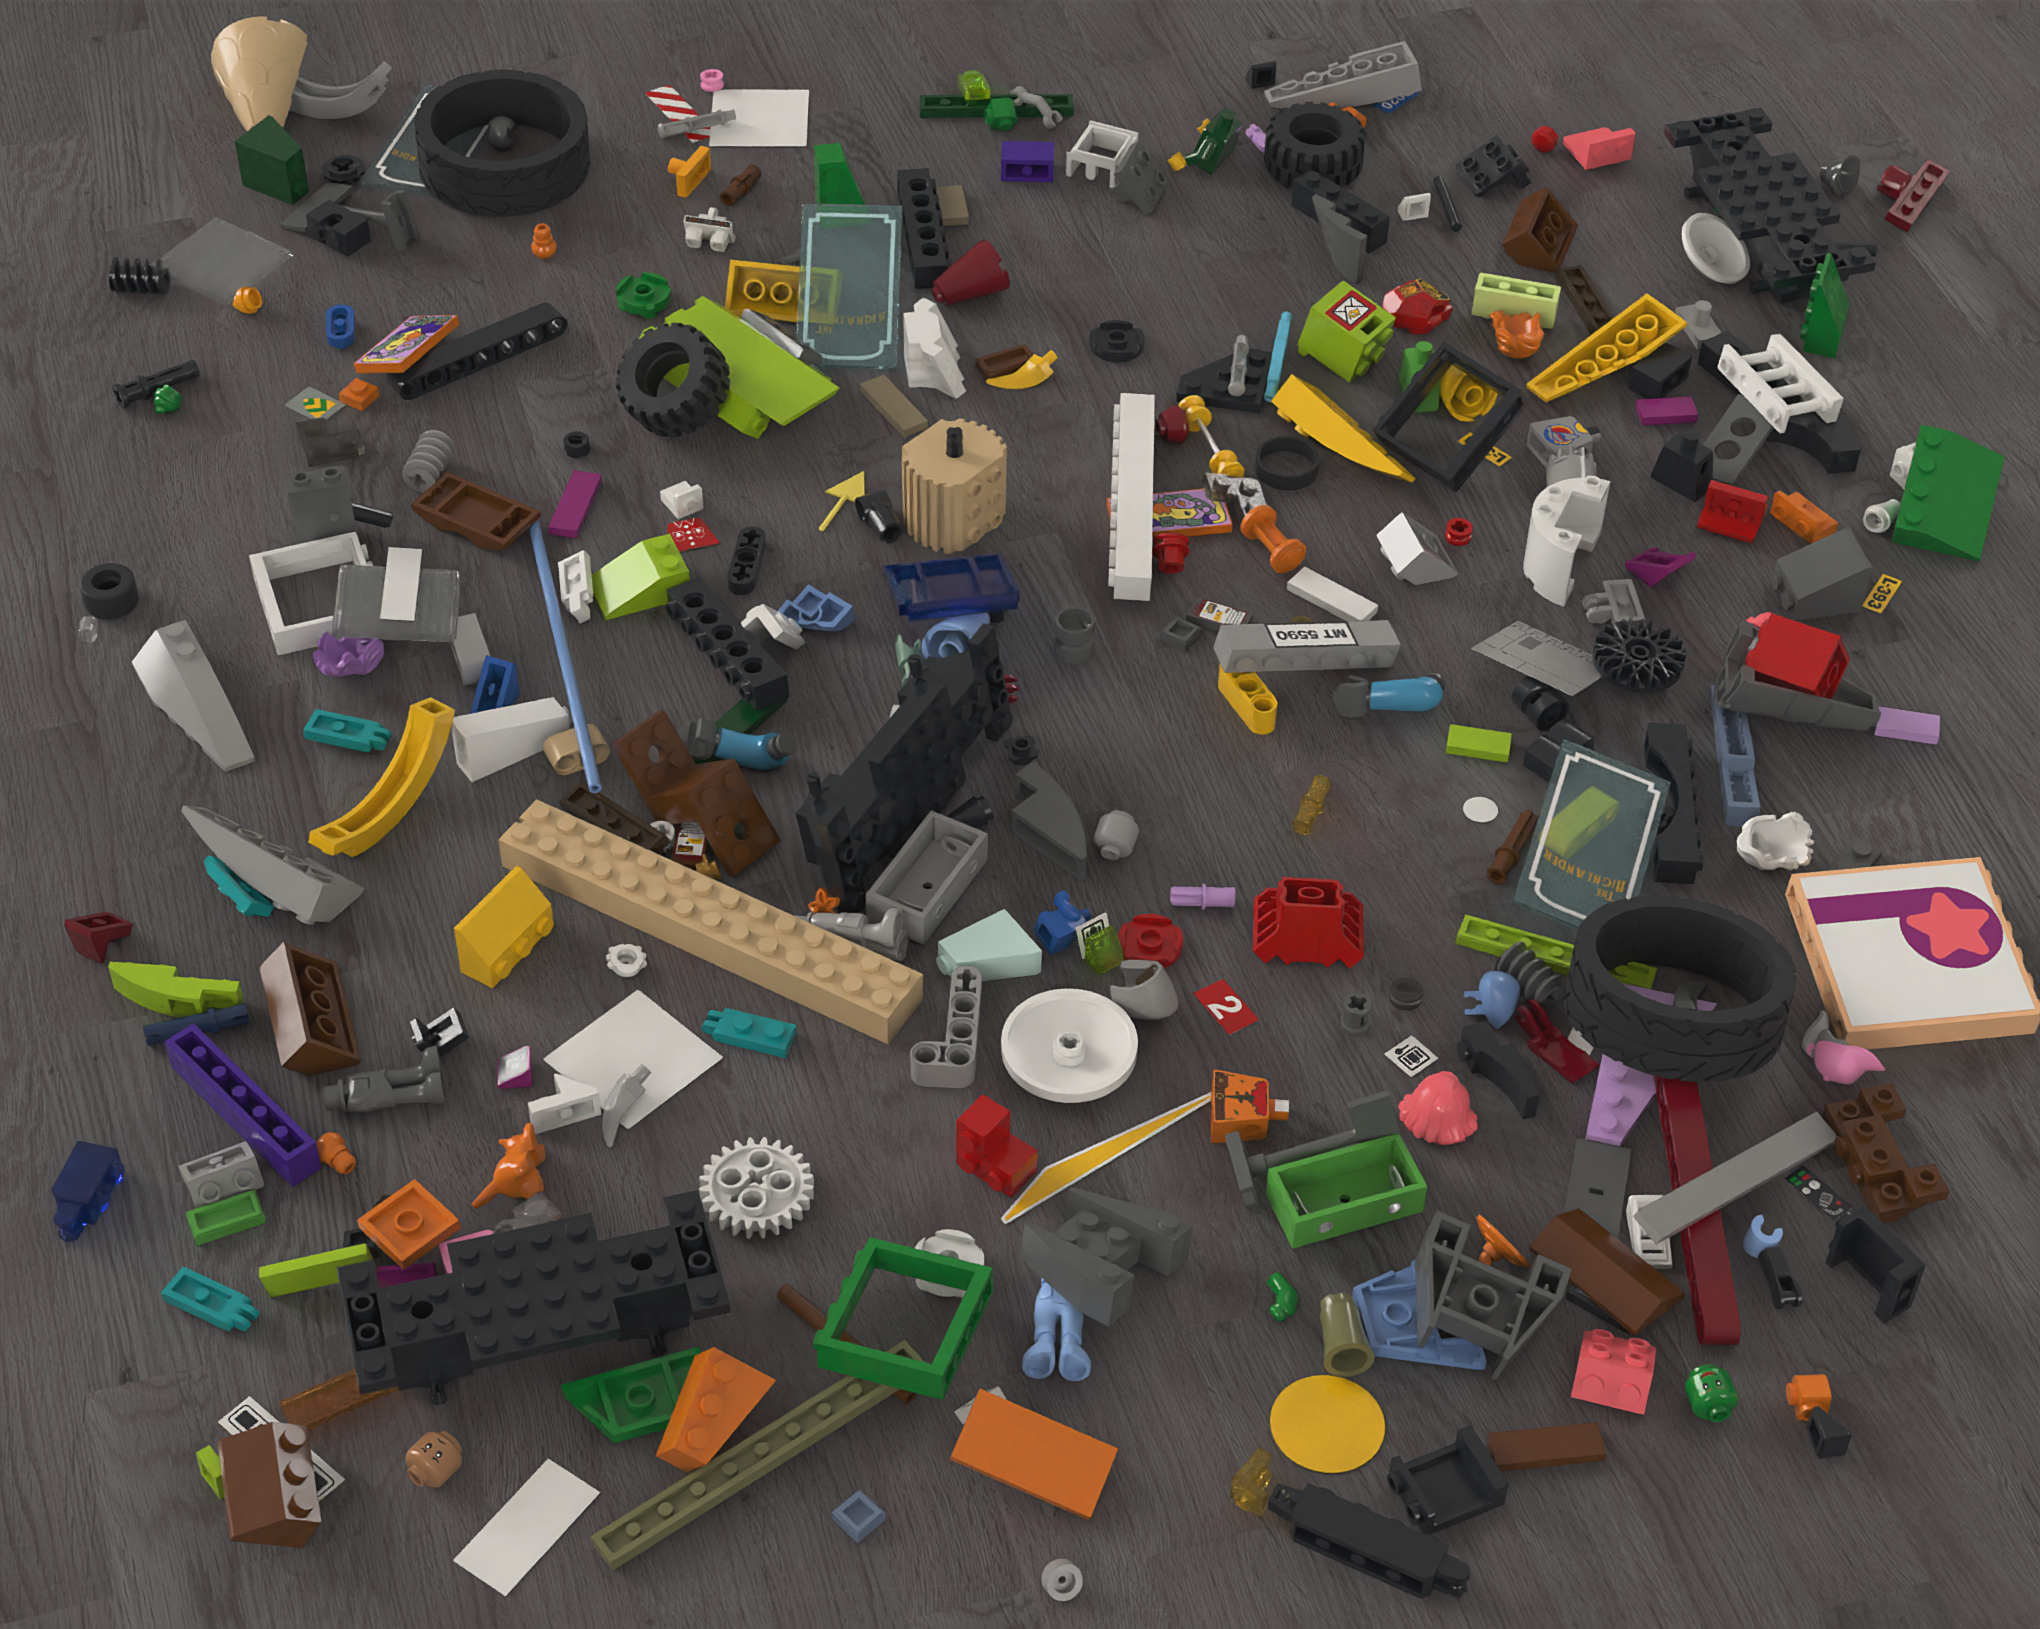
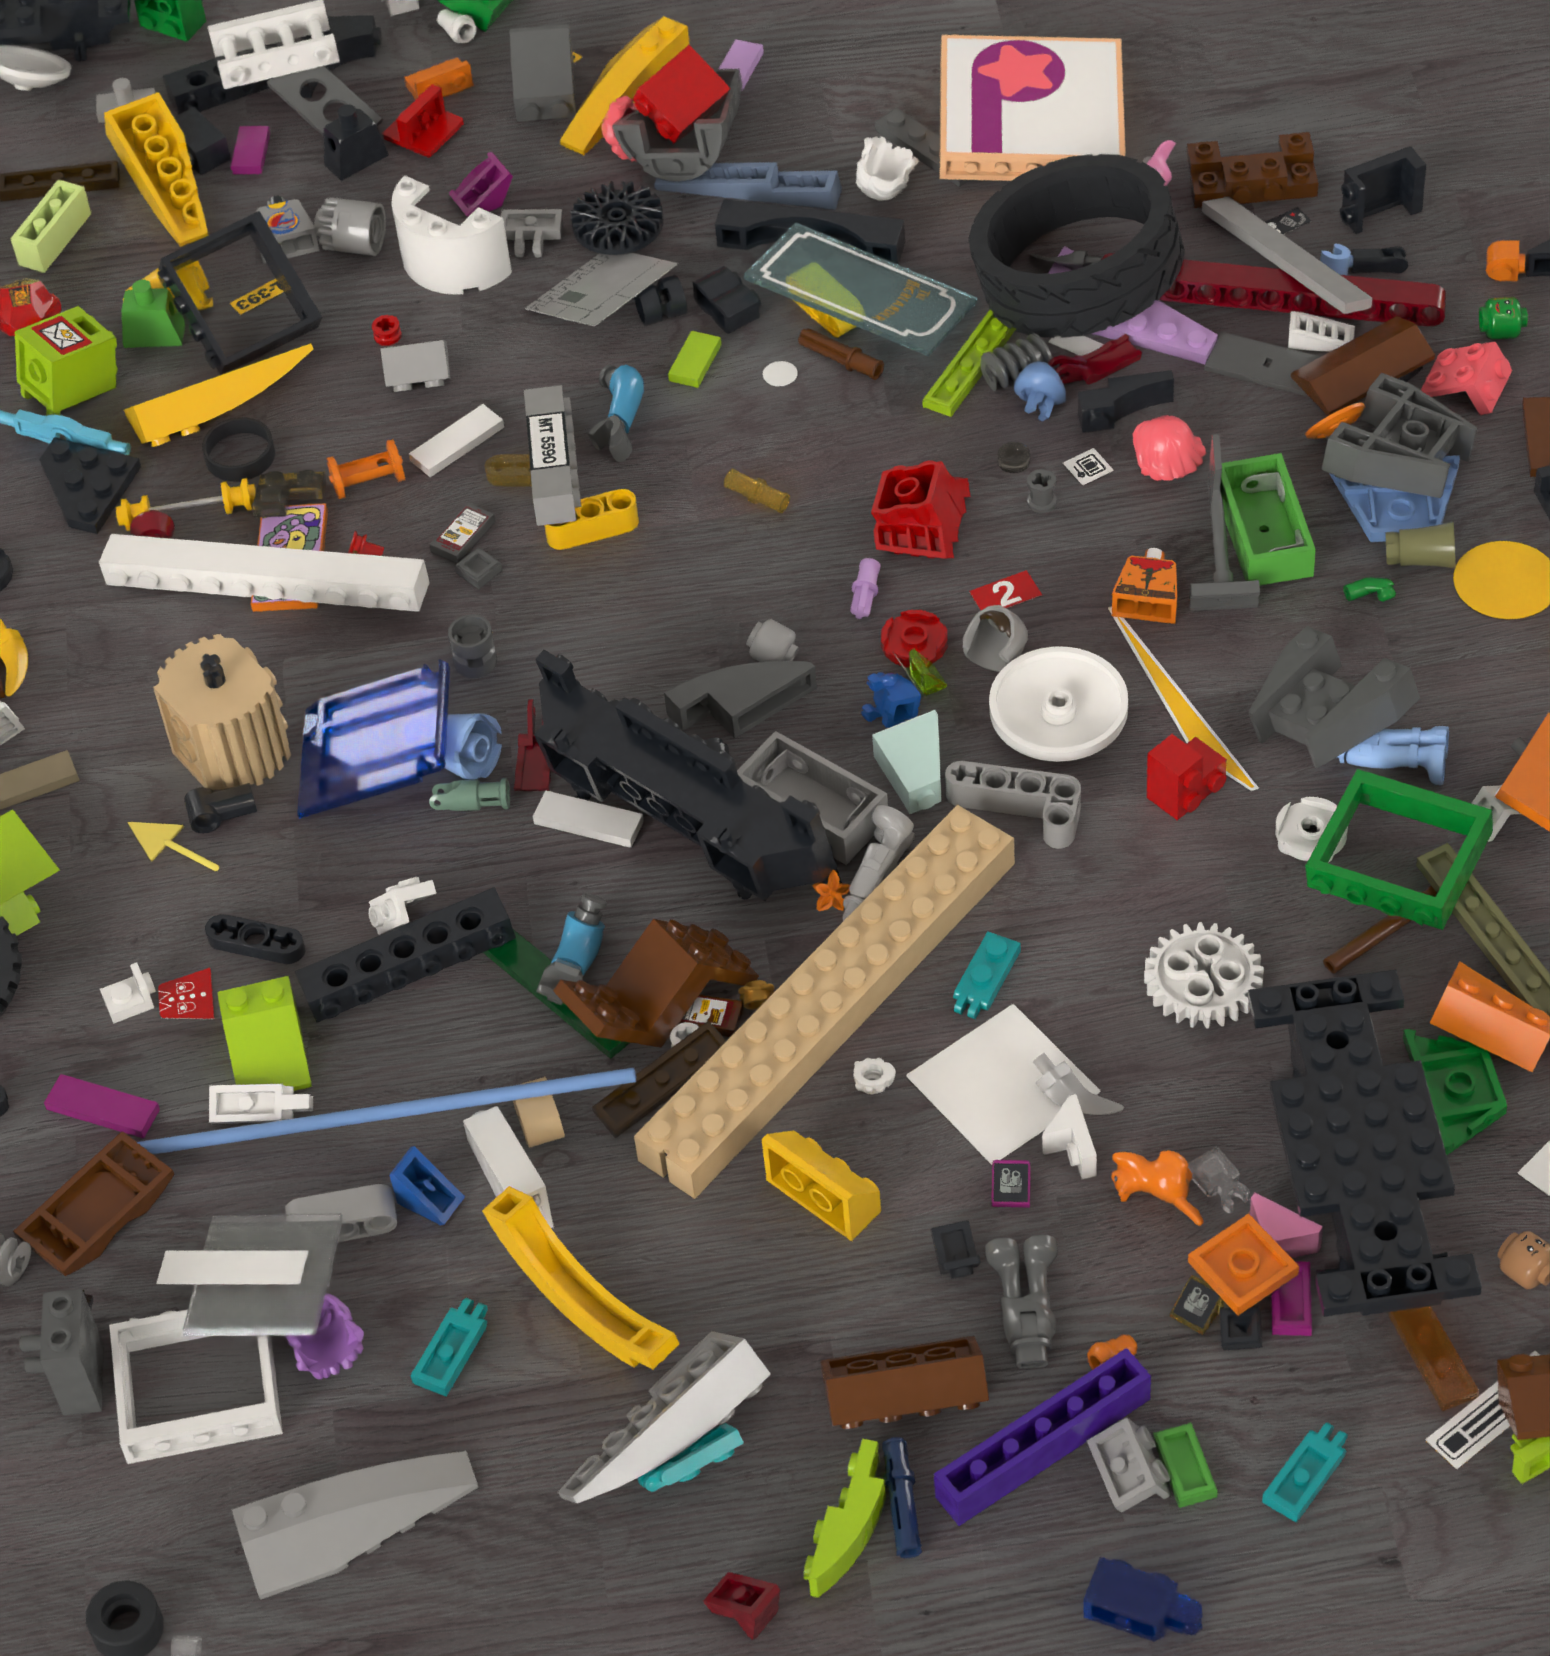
camera: 75 degrees left, 5 degrees up
(310, 1271) = (1283, 1361): lime tile -> none
(819, 611) = (361, 877): medium blue slope -> none
(1238, 369) = (78, 461): light grey piece -> none
(1518, 335) = (101, 235): orange hair -> none
(1873, 650) = (623, 77): none -> yellow wedge

